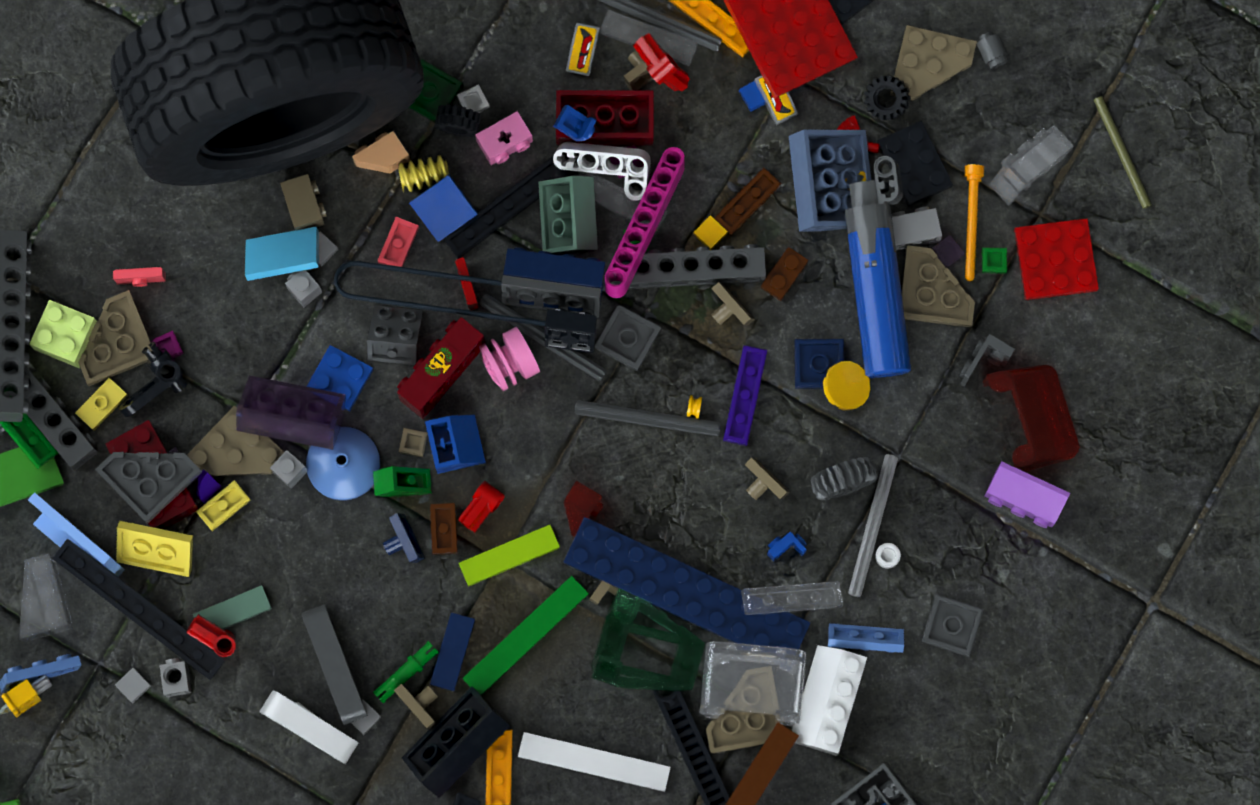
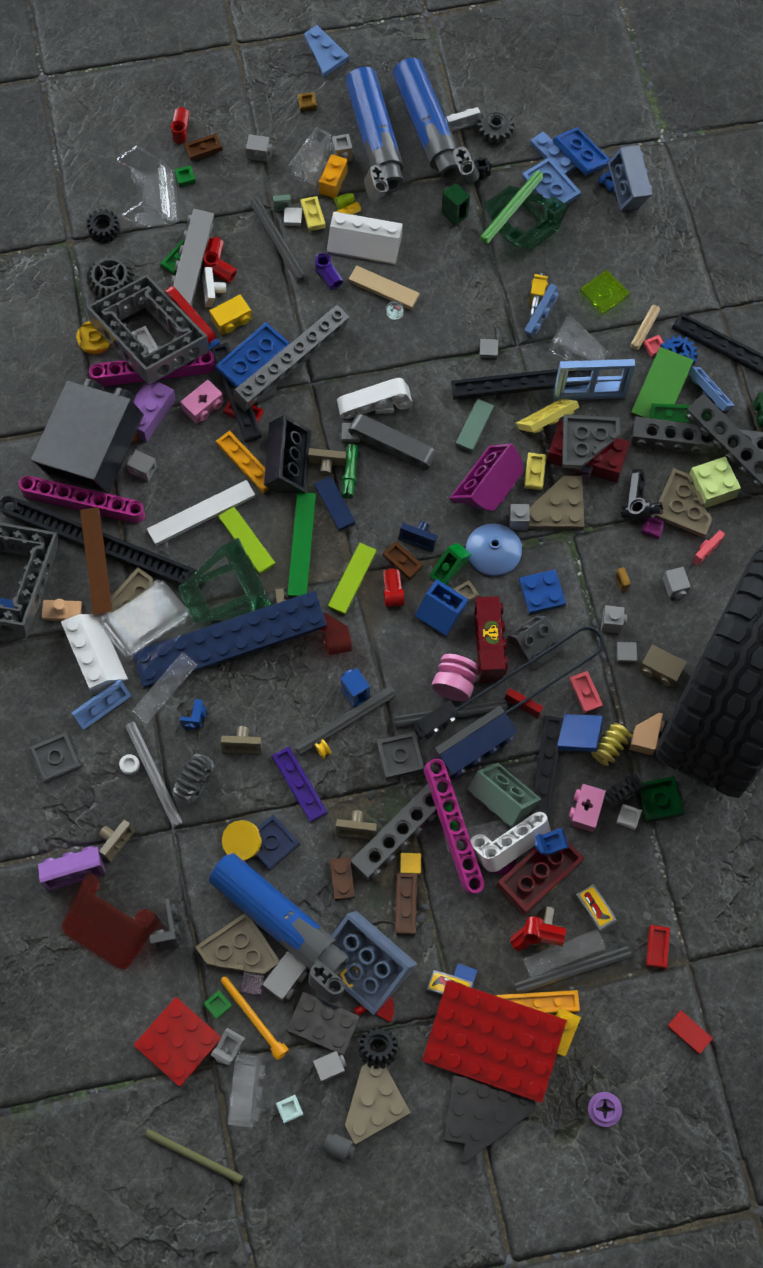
camera: 135 degrees right, 10 degrees down
(101, 404) = (655, 467): light yellow plate -> none
(179, 688) = (469, 360): light grey brick -> none
(206, 269) = (676, 583): none -> light grey brick
(206, 487) = (554, 473): dark purple tile -> none
(210, 634) = (466, 402): red piece -> none
(253, 318) = (622, 579): none -> pearl gold tile
(280, 533) = (490, 478): none -> magenta windscreen
(282, 253) = (643, 625): medium azure tile -> none
(290, 412) = (548, 543): clear purple brick -> none
(575, 690) = (239, 529): none -> lime tile
(613, 434) = (355, 687): none -> blue brick
(822, 777) = (60, 610): none -> light nougat tile
(942, 120) = (330, 1066): none -> light grey brick
(962, 491) = (115, 839): none -> dark tan tile
(1006, 119) = (289, 1109): none -> light aqua tile
(1017, 213) = (228, 1047): none -> light grey bracket

